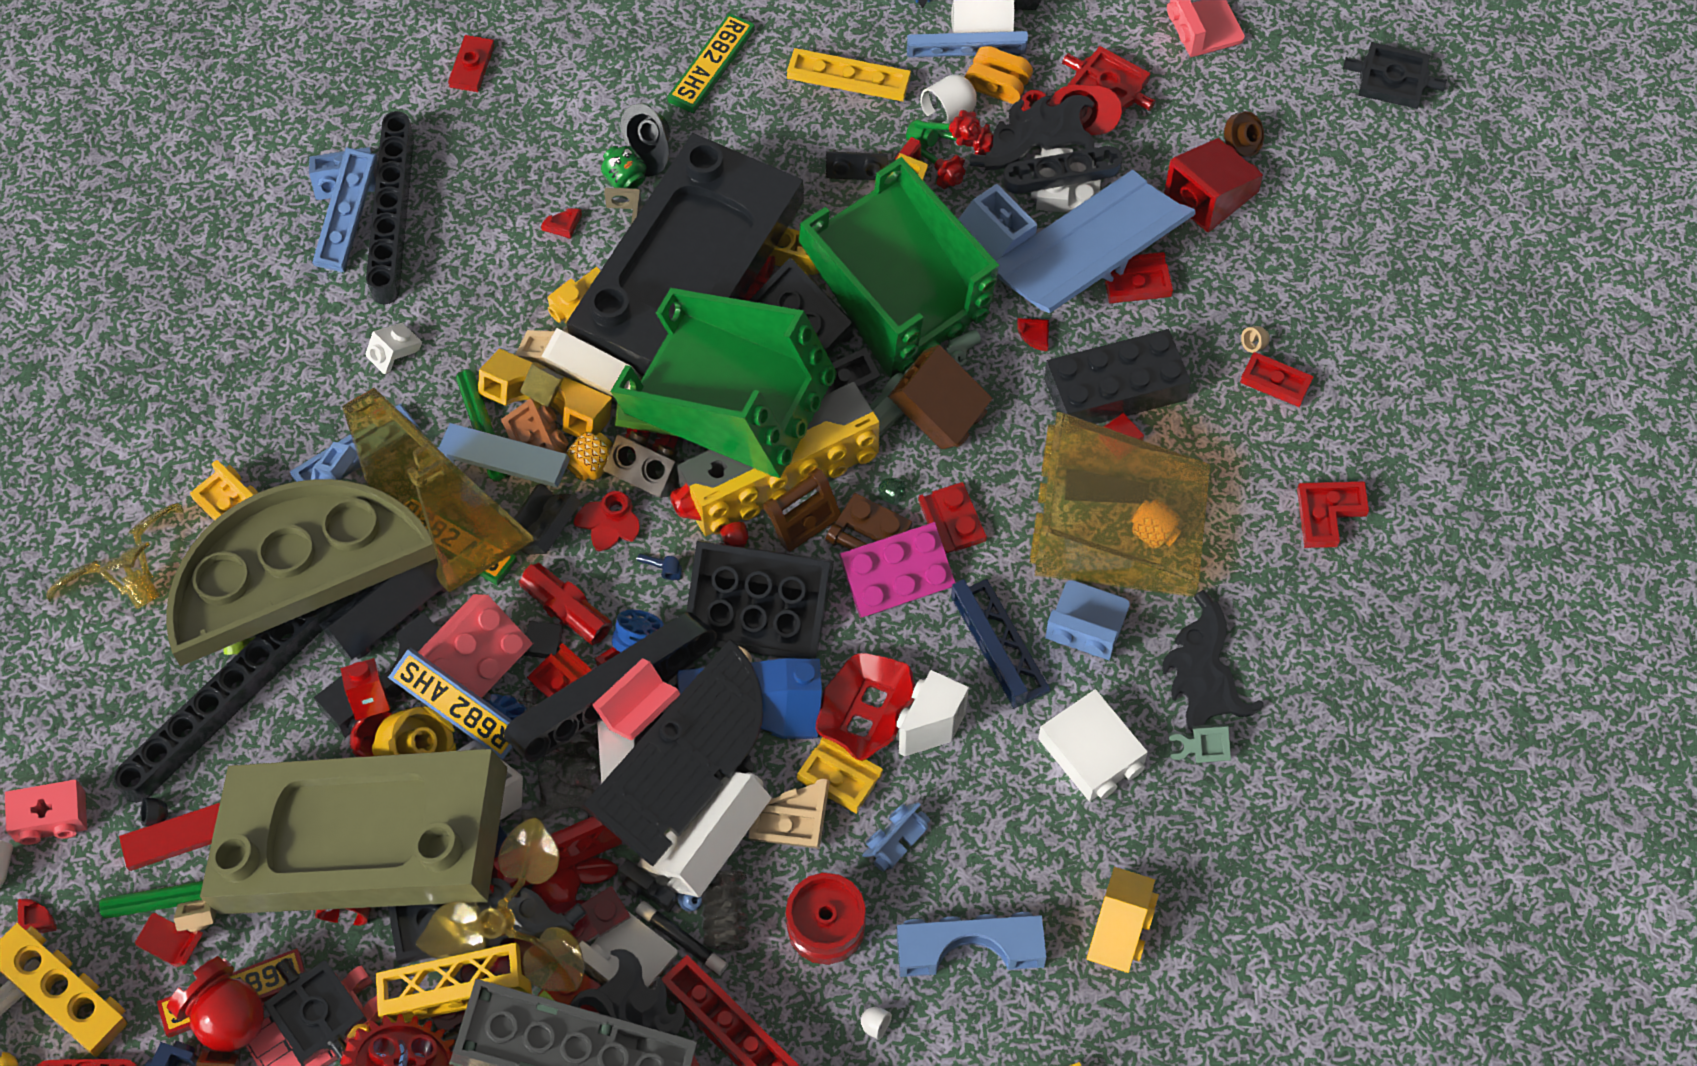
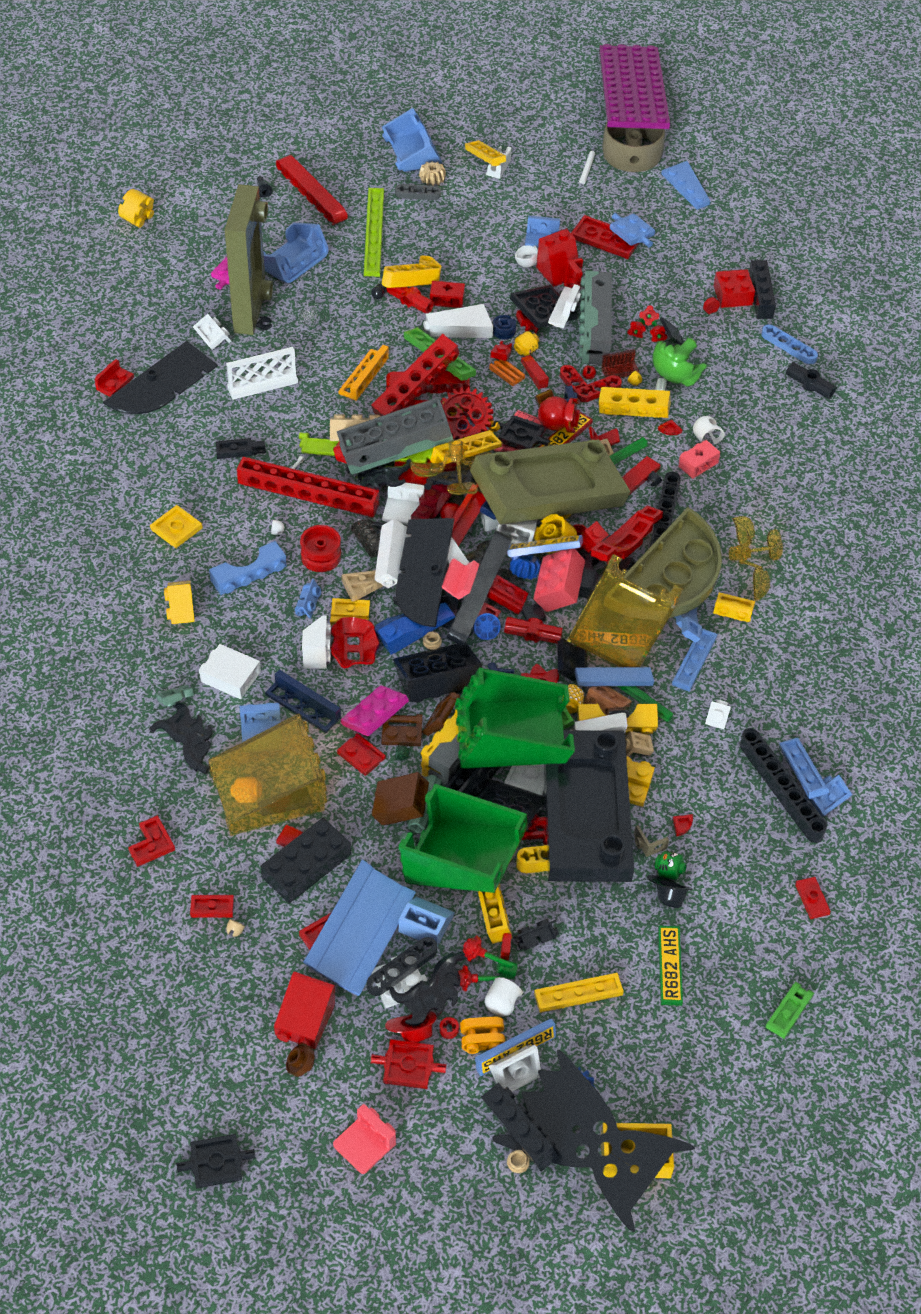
camera: 150 degrees right, 10 degrees down
(311, 673) = (628, 536): none -> red piece

